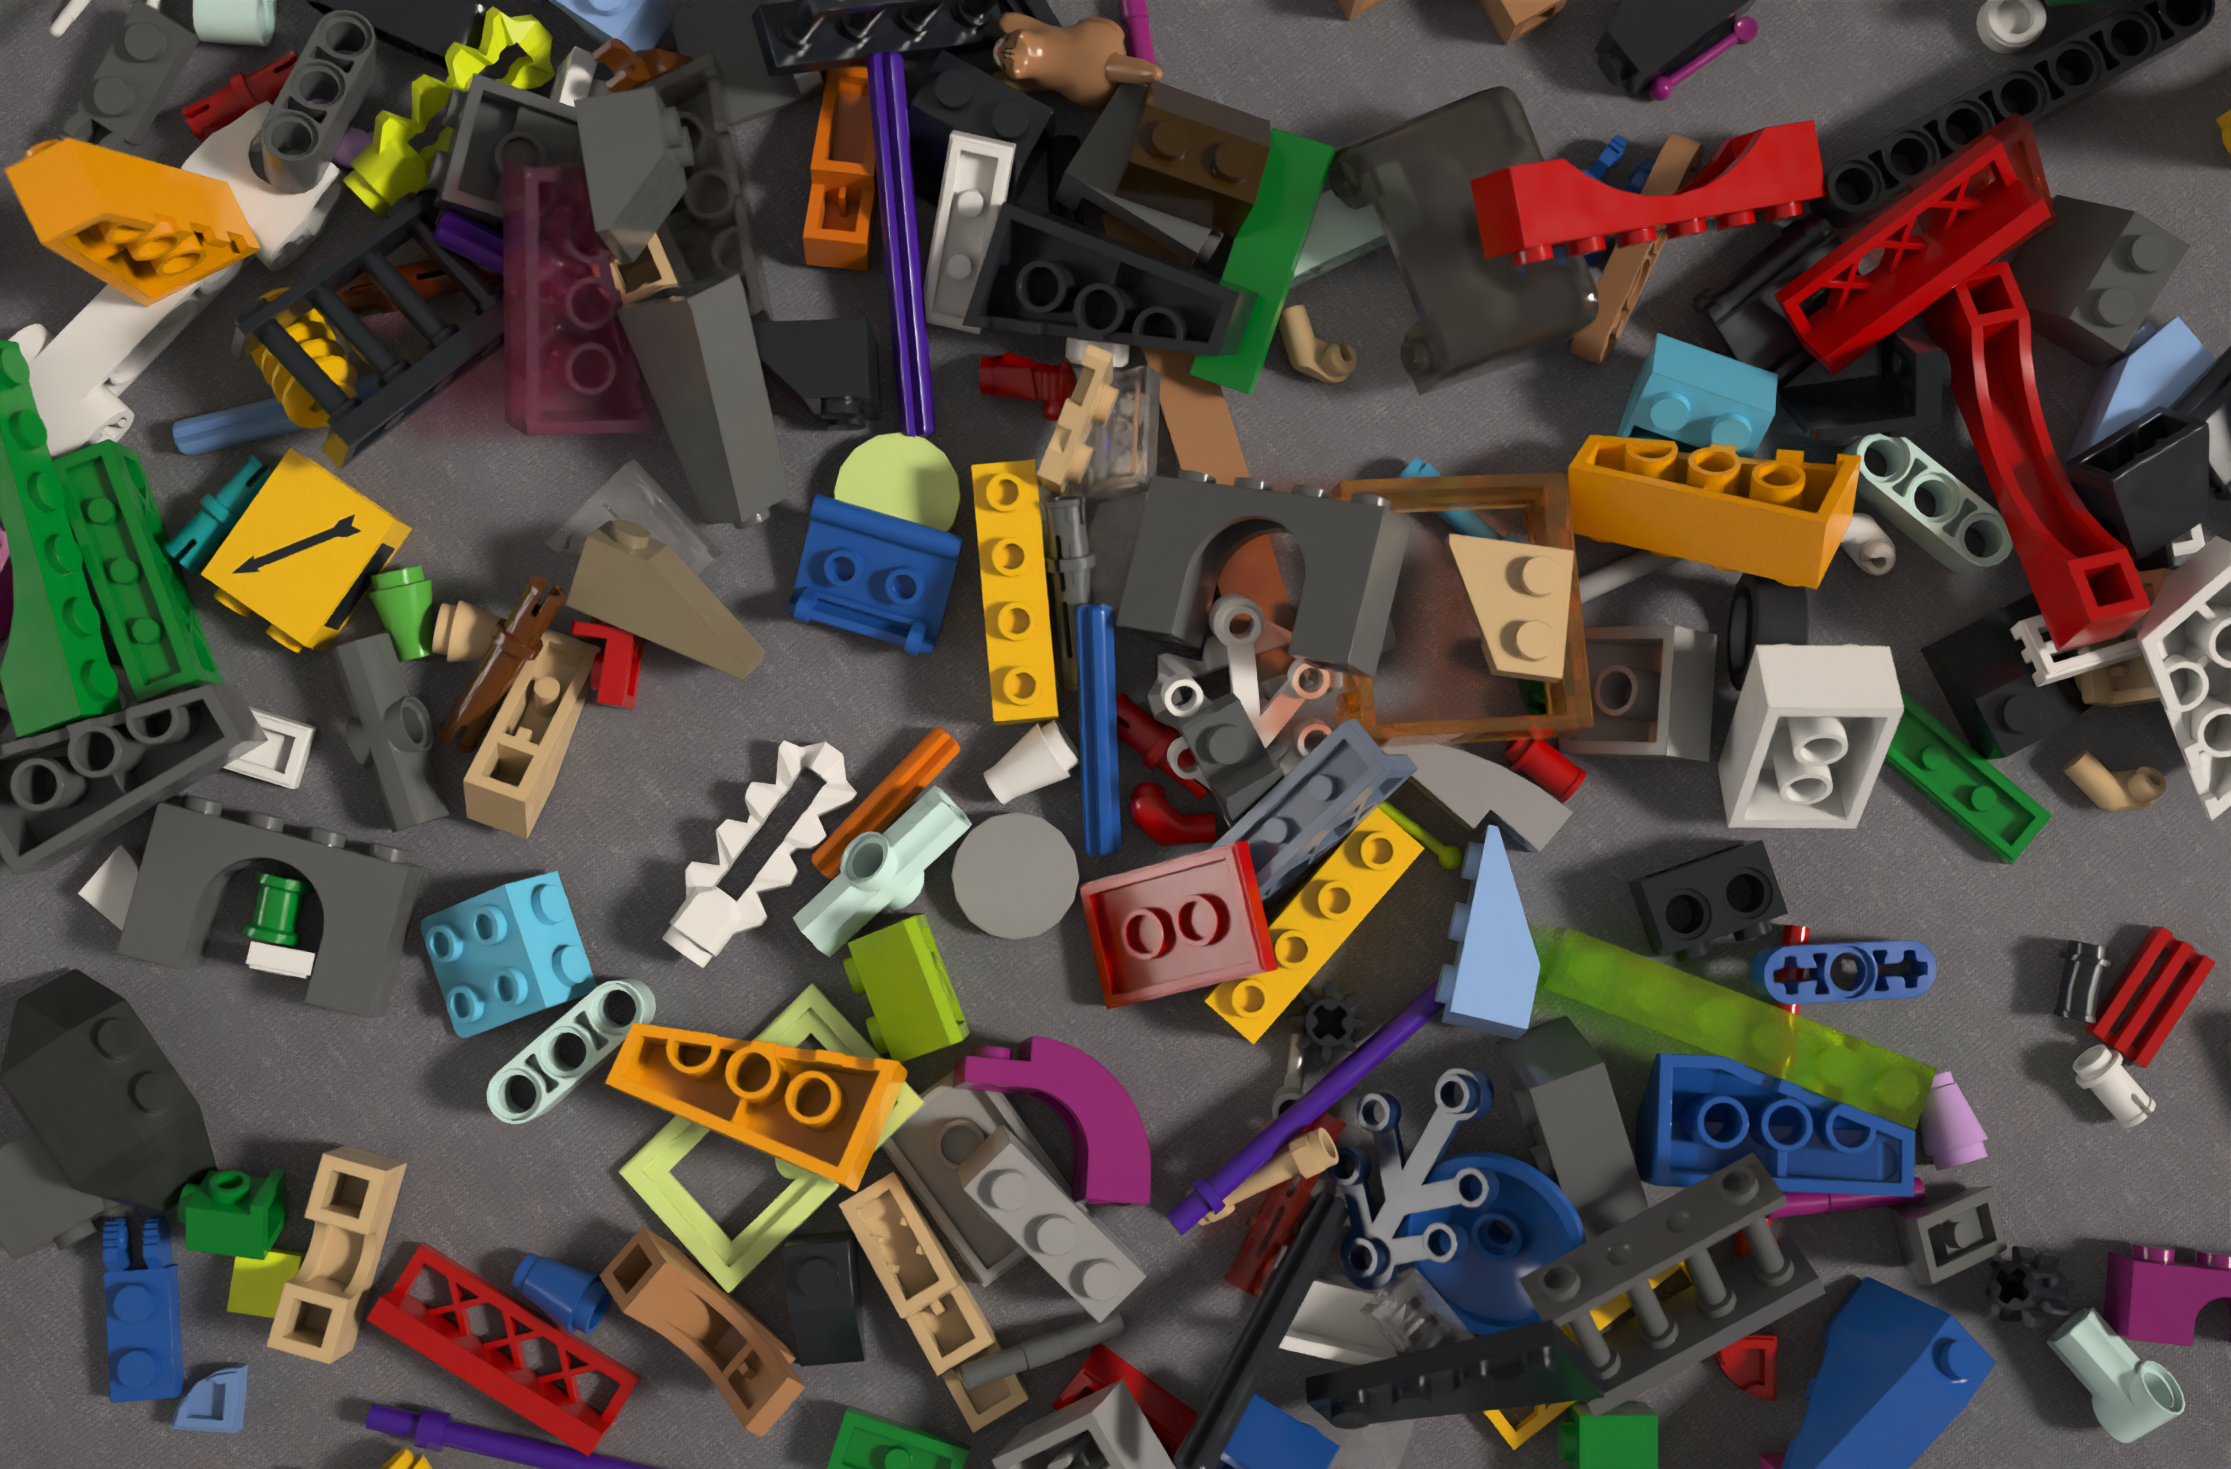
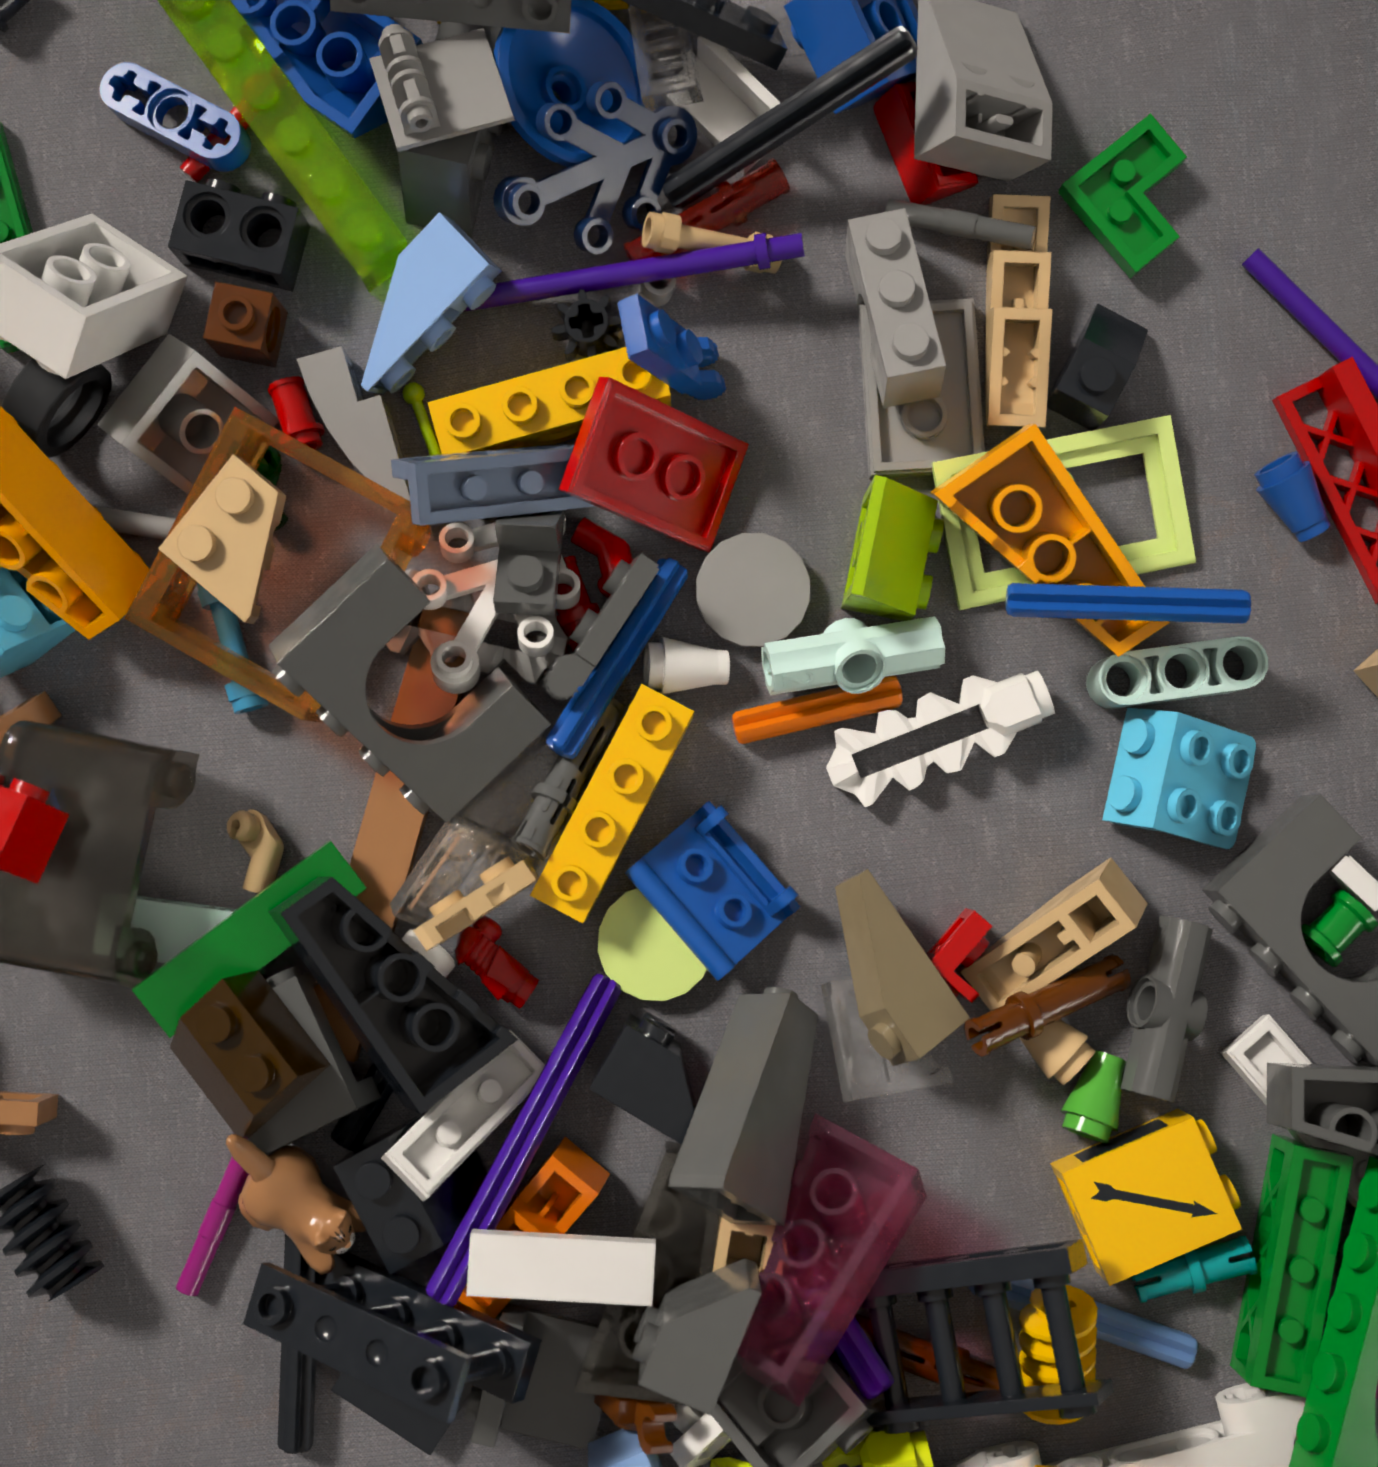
camera: 145 degrees left, 0 degrees up
(654, 1073) = (1128, 603): none -> blue axle
(713, 1327) = (1193, 387): medium nougat arch -> none
(791, 149) = (561, 1267): none -> white tile
(1095, 1108) = (806, 364): magenta arch -> none
(1128, 739) = (598, 630): none -> dark grey hinge
(1232, 1040) = (669, 349): none -> blue hinge
(1604, 1146) = (438, 86): none -> light grey hinge
(1645, 817) = (245, 324): none -> reddish brown brick

